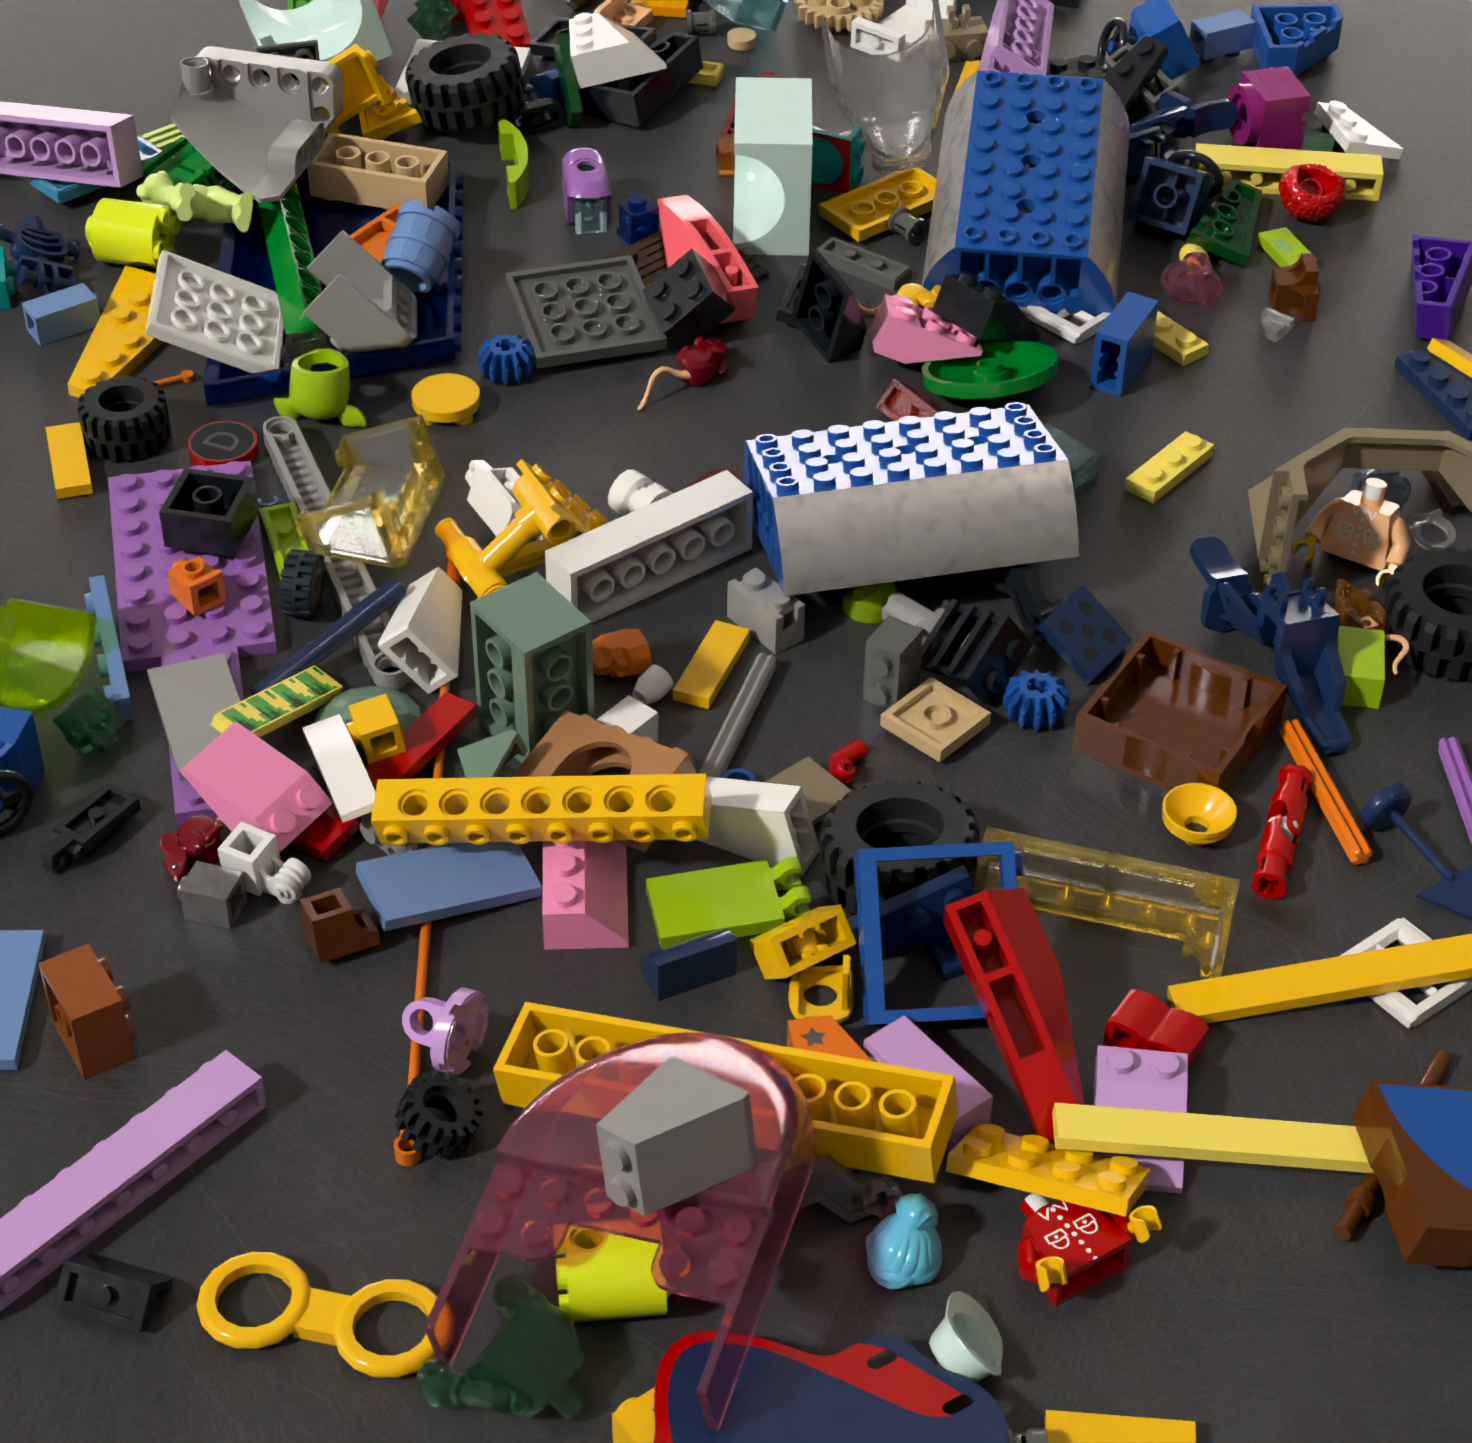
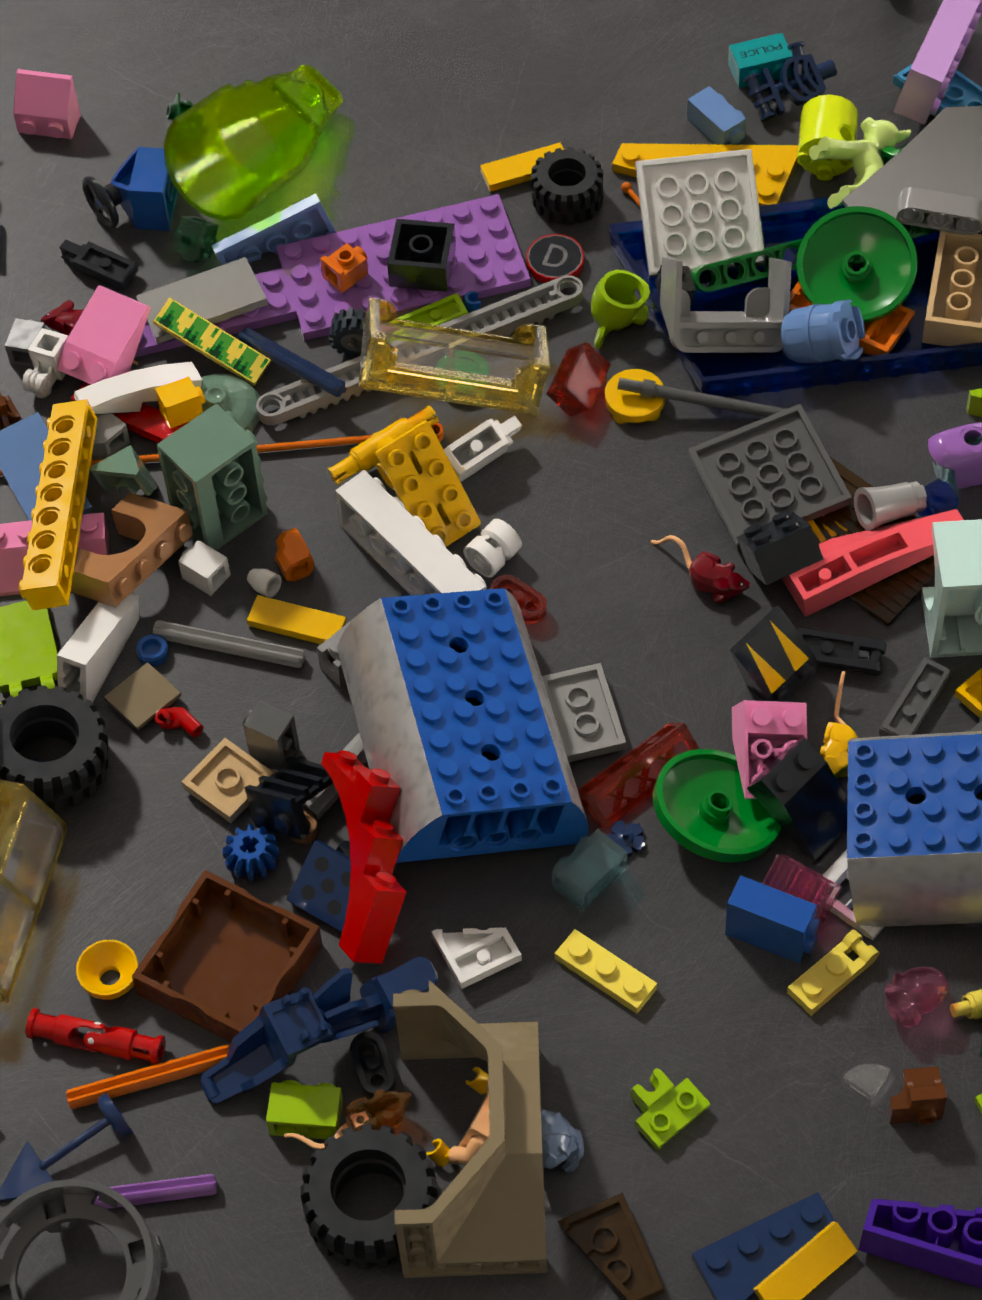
camera: 90 degrees right, 15 degrees up
(332, 197) = (863, 240): none -> green dish
(426, 631) = (304, 418): white slope -> none
(442, 426) = (579, 379): none -> clear red brick
(452, 372) = (649, 389): none -> dark grey bar
(506, 359) = (694, 427): blue gear -> none
(649, 238) = (888, 503): none -> light grey plant
(1021, 550) = (374, 847): none -> red arch
(1076, 335) = (803, 883): none -> clear pink brick
(1156, 544) = (476, 952): none -> white wing
(1308, 430) = (666, 1108): none -> lime plate

